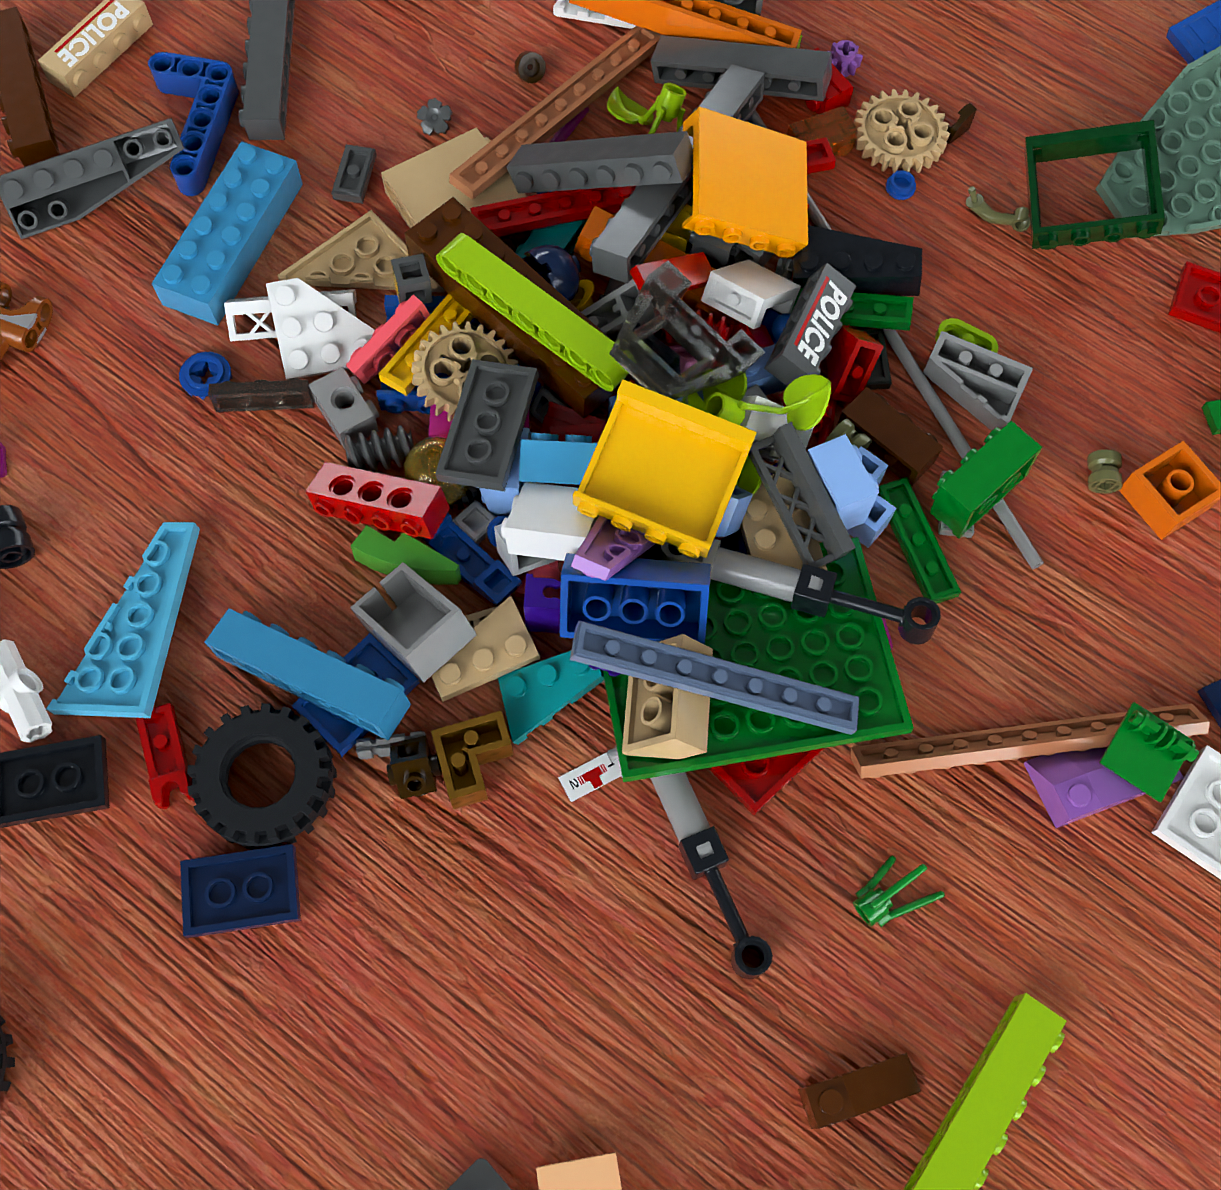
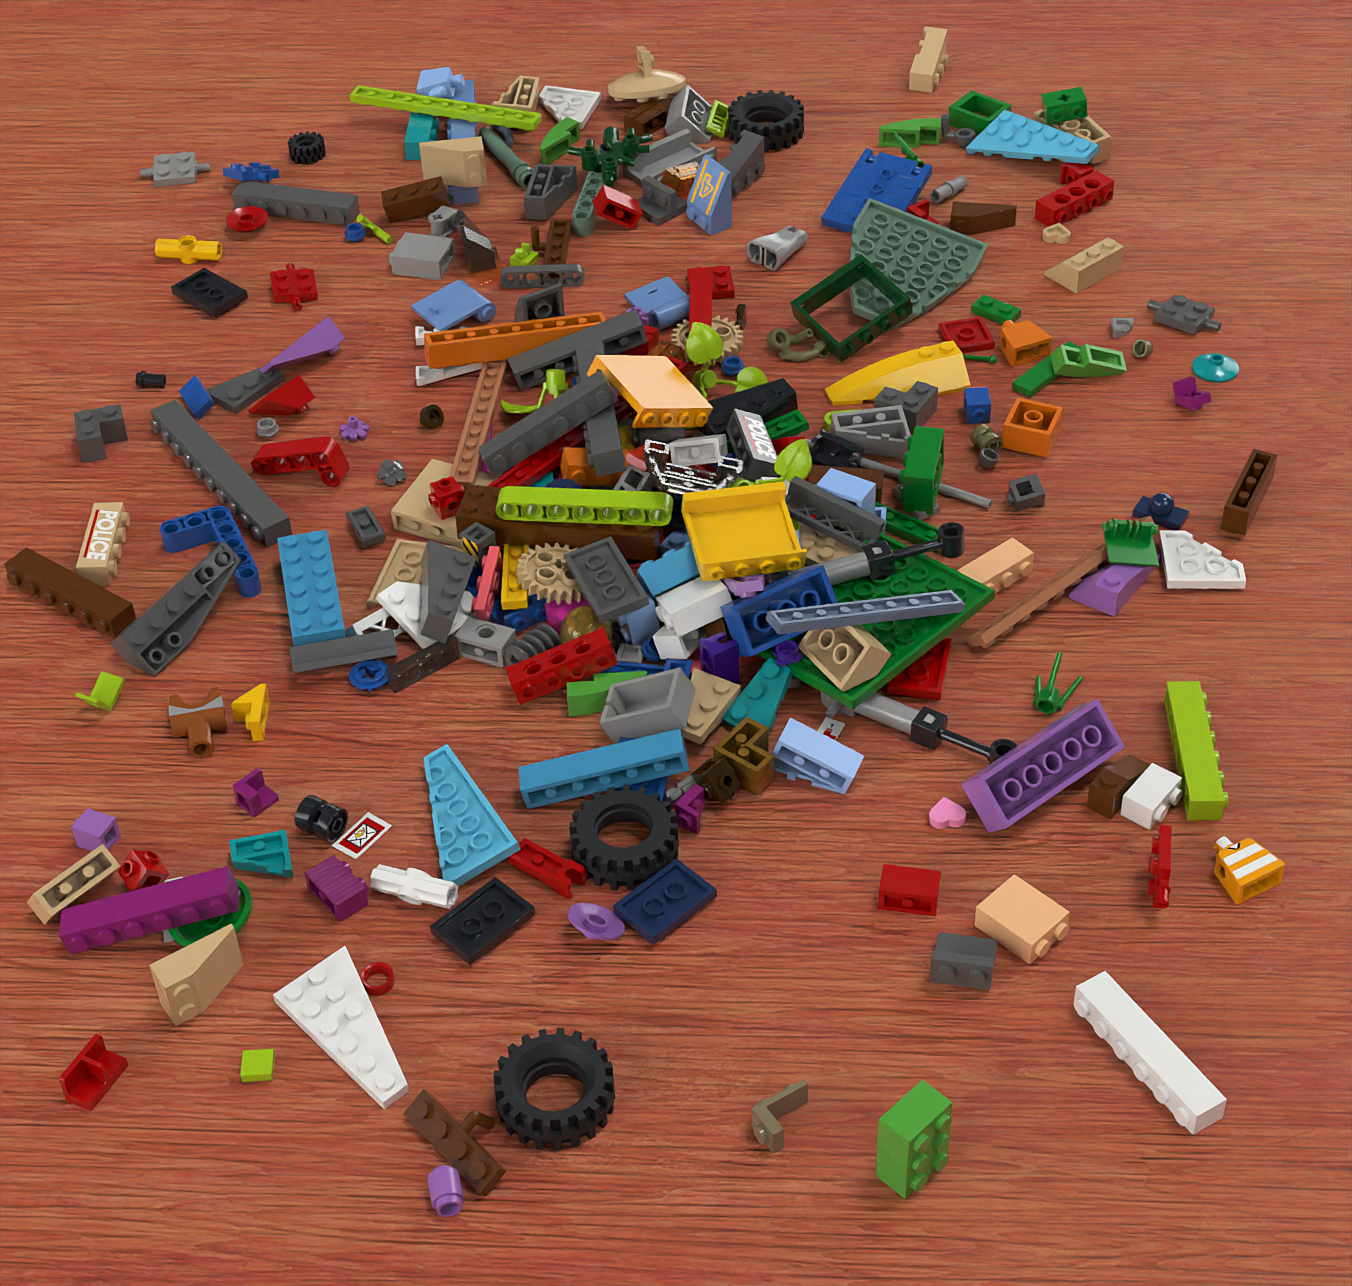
camera: 30 degrees left, 25 degrees down
(40, 578) = (361, 835): none -> sticker
(65, 348) = (253, 710): none -> yellow slope
(156, 855) = (596, 921): none -> medium lavender dish
(197, 331) = (343, 651): none -> dark grey fence
(332, 319) = (443, 585): none -> dark grey wedge
(358, 48) = (301, 455): none -> red beam
(365, 779) = (689, 809): none -> magenta bracket
(434, 190) = (443, 494): none -> red brick
(447, 37) = (354, 429): none -> medium lavender plant
(495, 1073) = (909, 890): none -> red panel
(542, 812) = (815, 757): none -> light blue wedge
(629, 987) = (947, 814): none -> bright pink tile
(777, 1017) = (1042, 766): none -> medium lavender brick
(866, 150) = (706, 344): none -> lime plant
(877, 1144) = (1151, 796): none -> white brick
(897, 51) = (662, 301): none -> medium blue door
(910, 97) = (700, 299): none -> red tile
(911, 383) = (835, 451): none -> black hinge
(961, 673) = (1001, 565): none -> light nougat brick
(971, 51) = (721, 280): none -> red plate
(988, 180) = (781, 336): none -> olive plate
(1053, 370) = (917, 403): none -> dark grey brick
(1083, 43) = (776, 247): none -> light grey piece
(1086, 495) = (988, 458): none -> dark grey hinge
(1095, 321) = (936, 365): none -> yellow wedge
(1099, 576) = (1025, 493): none -> dark grey brick
(1134, 412) = (977, 405): none -> blue brick
(1171, 319) = (992, 359): none -> green hinge

